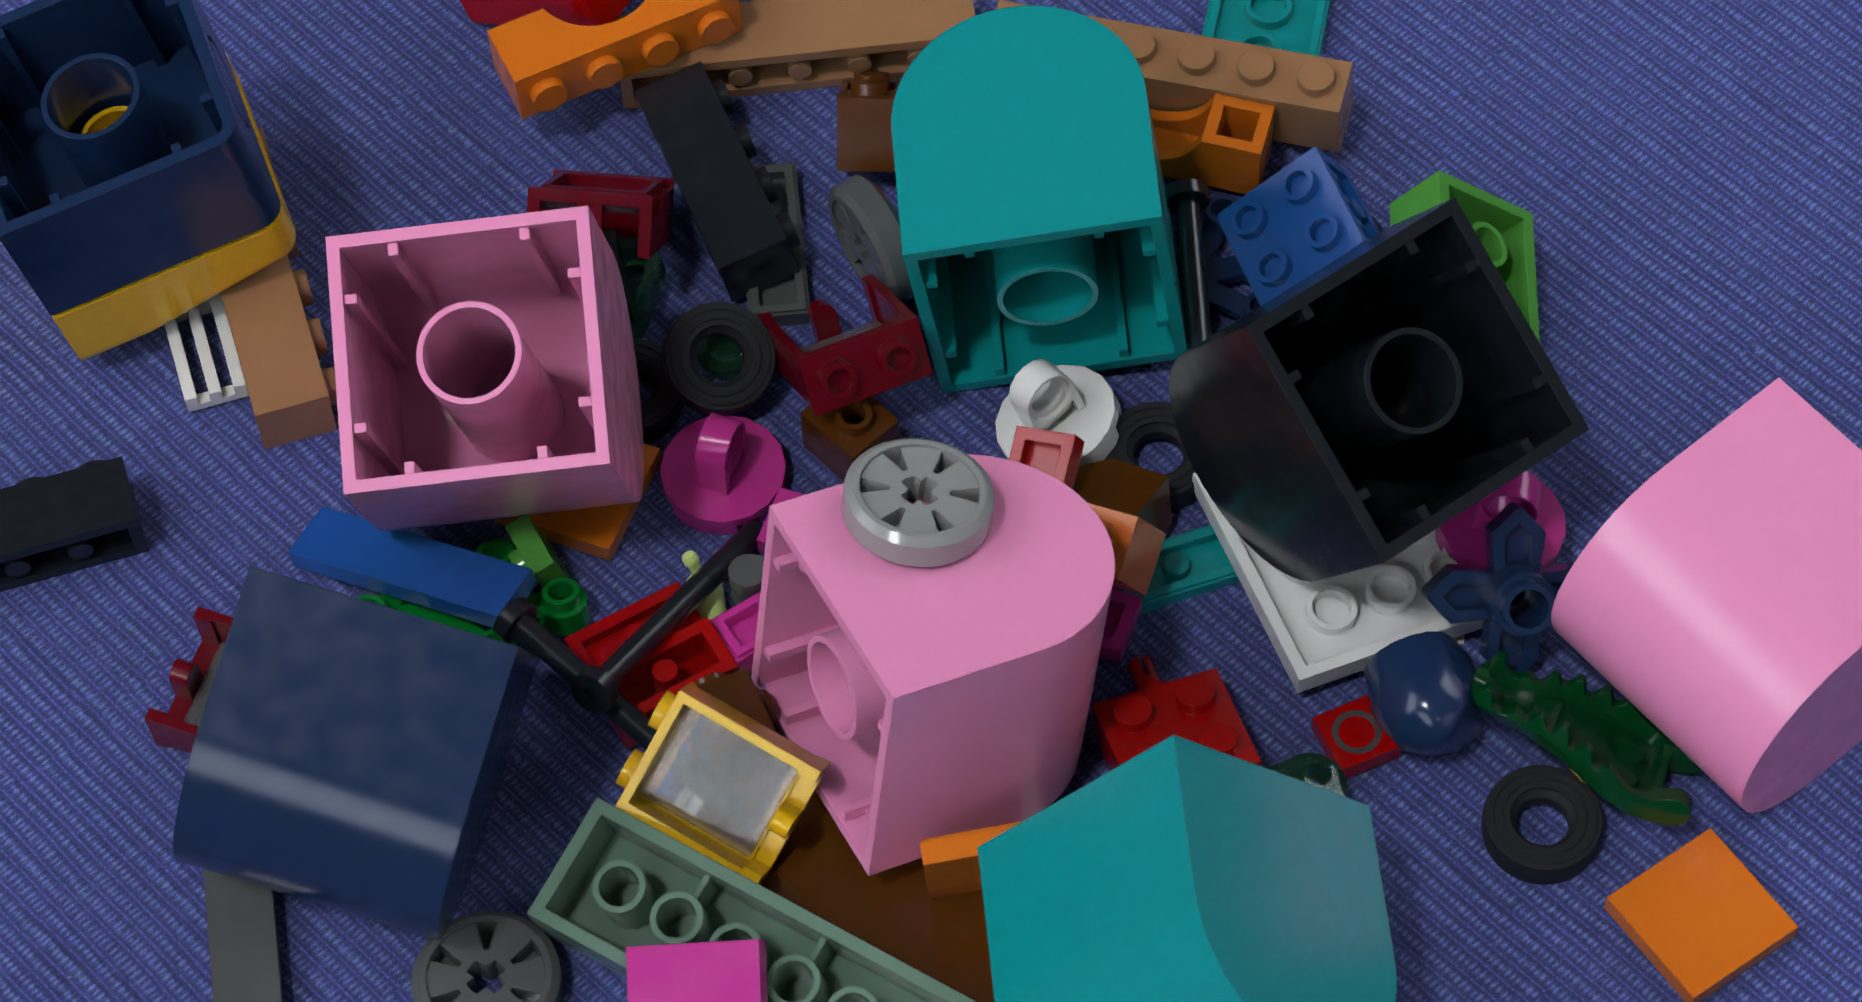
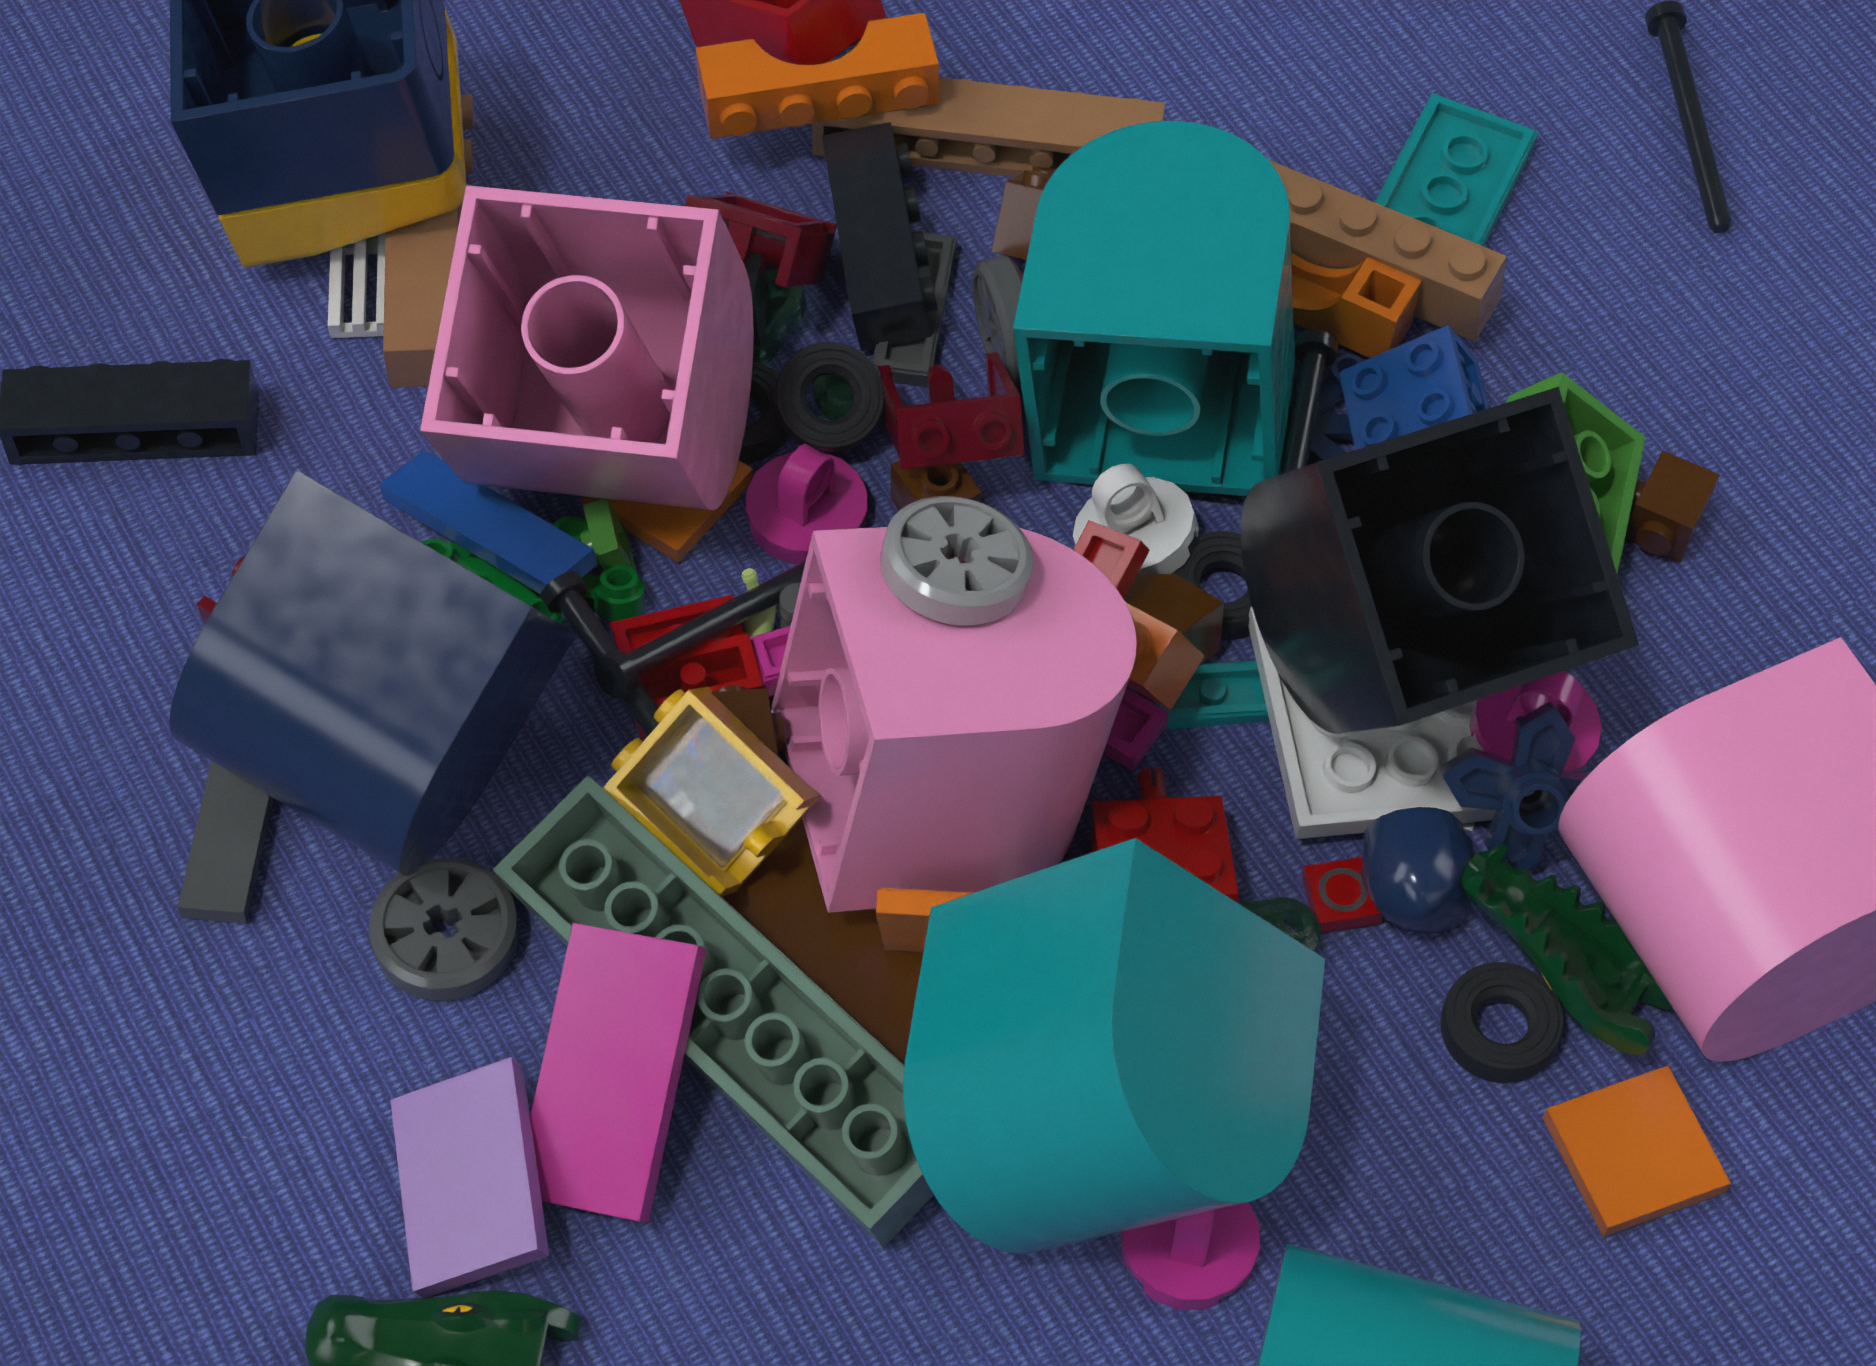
camera: 10 degrees right, 0 degrees up
(1572, 275) = (1670, 506): none -> reddish brown brick

